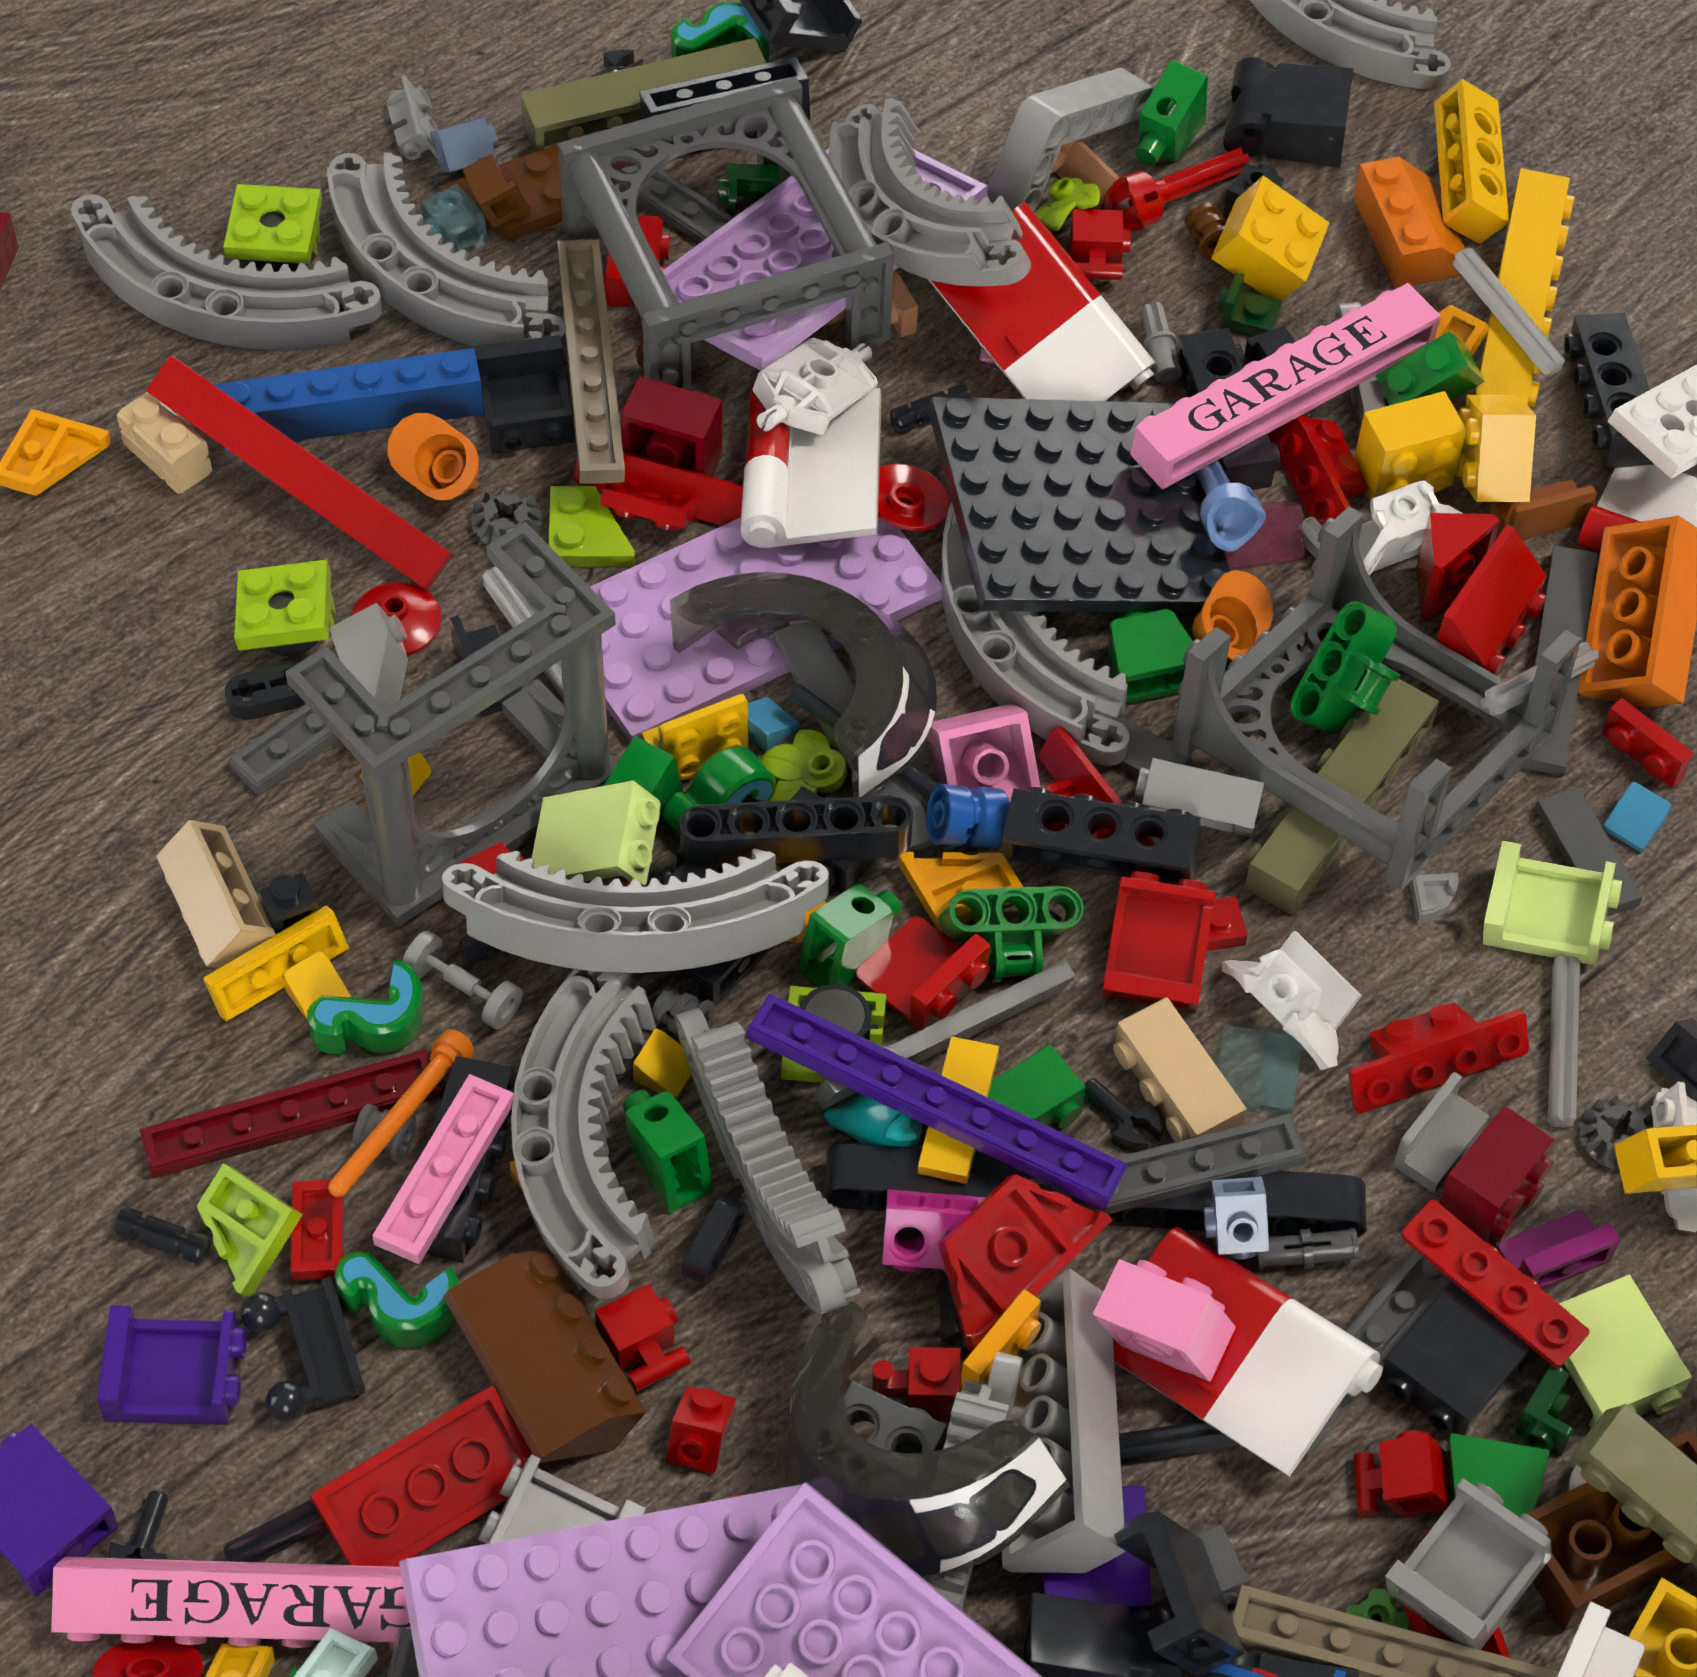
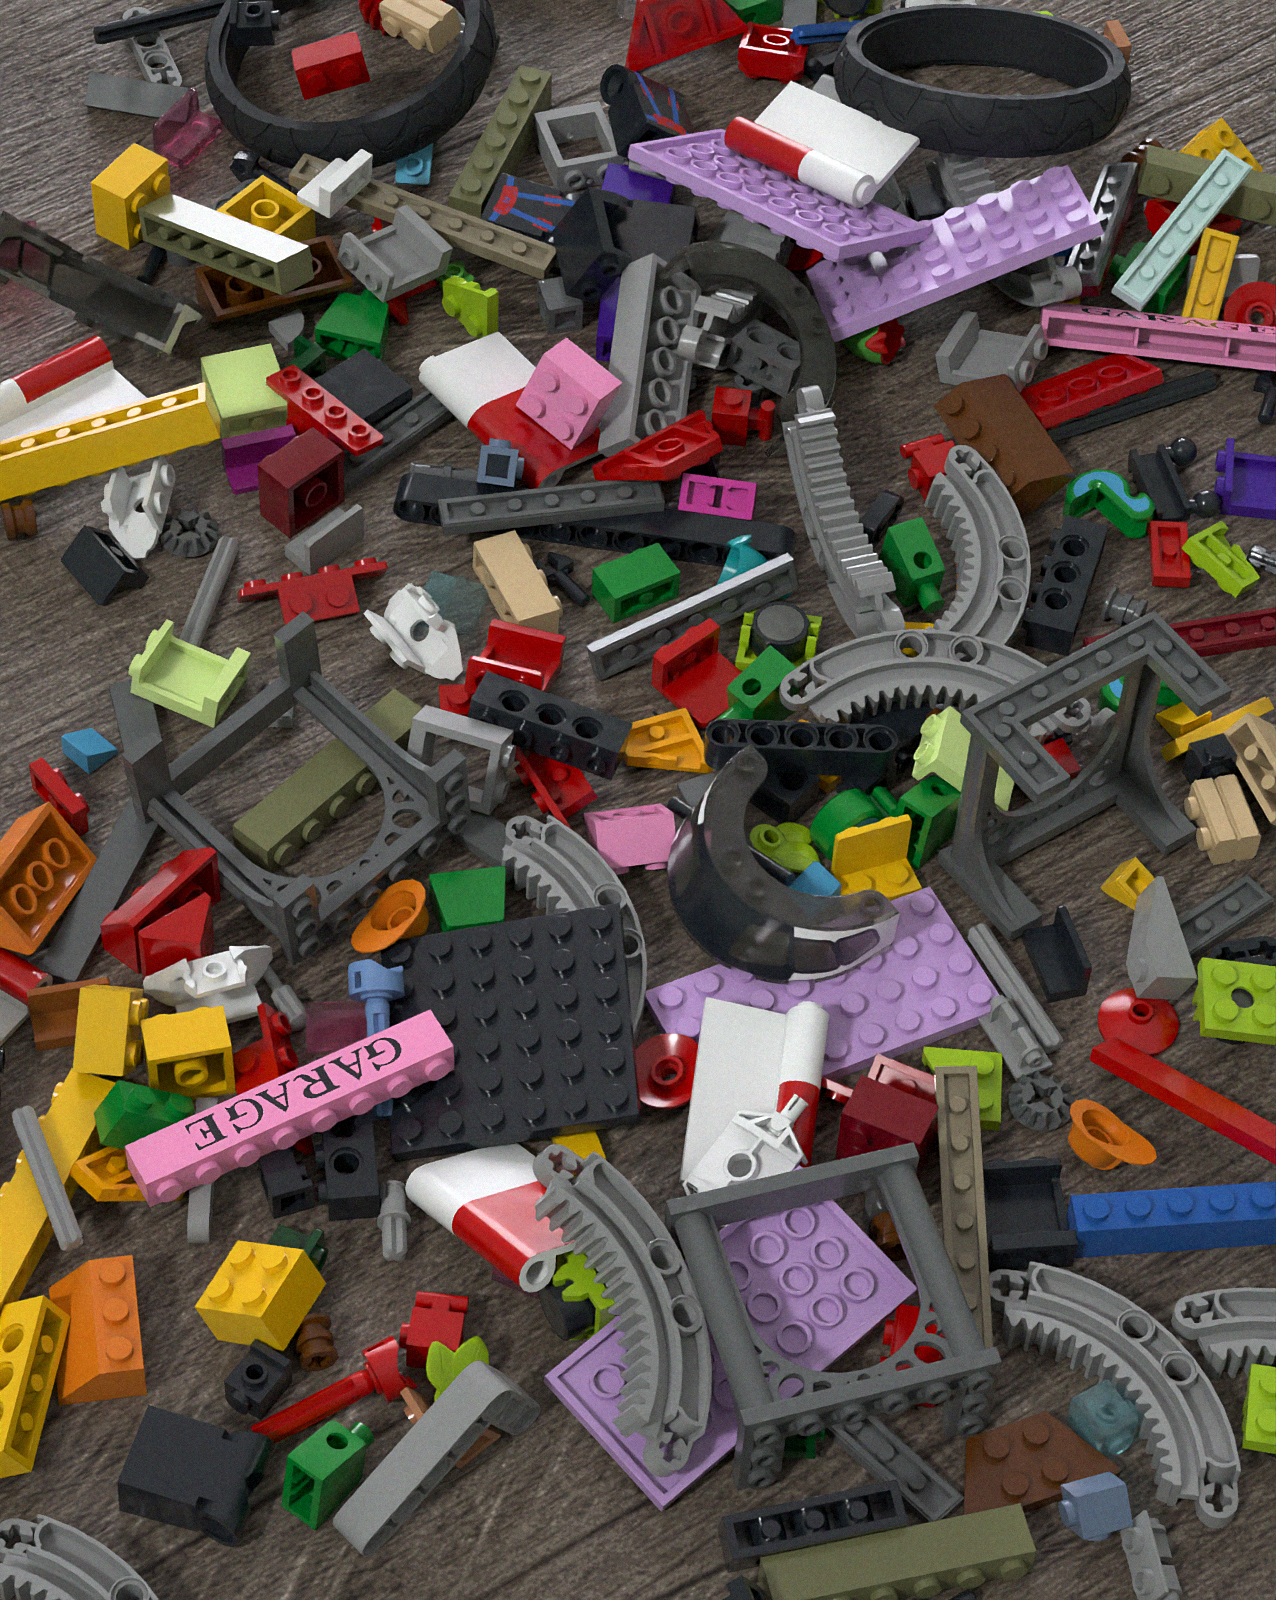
camera: 175 degrees left, 5 degrees down
(279, 838) = (1222, 819): none -> tan brick
(442, 1057) = (1117, 592): orange piece -> none
(443, 1169) = (1079, 544): bright pink plate -> none
(495, 190) = (1062, 1422): reddish brown brick -> none
(700, 1429) = (893, 415): red bracket -> none
(904, 417) = (640, 1172): black axle -> none
(937, 1101) = (715, 538): dark purple tile -> none
(967, 816) = (652, 776): blue wheel -> none
(972, 1066) = (692, 554): yellow tile -> none
(1011, 1332) = (688, 395): light orange wing -> none
(1013, 947) = (634, 693): green piece -> none
(1335, 1535) = (471, 306): none -> lime wing
(1347, 670) = (306, 837): green piece -> none
(1410, 1476) = (411, 336): red brick -> none
(1518, 688) = (142, 819): light grey axle -> none

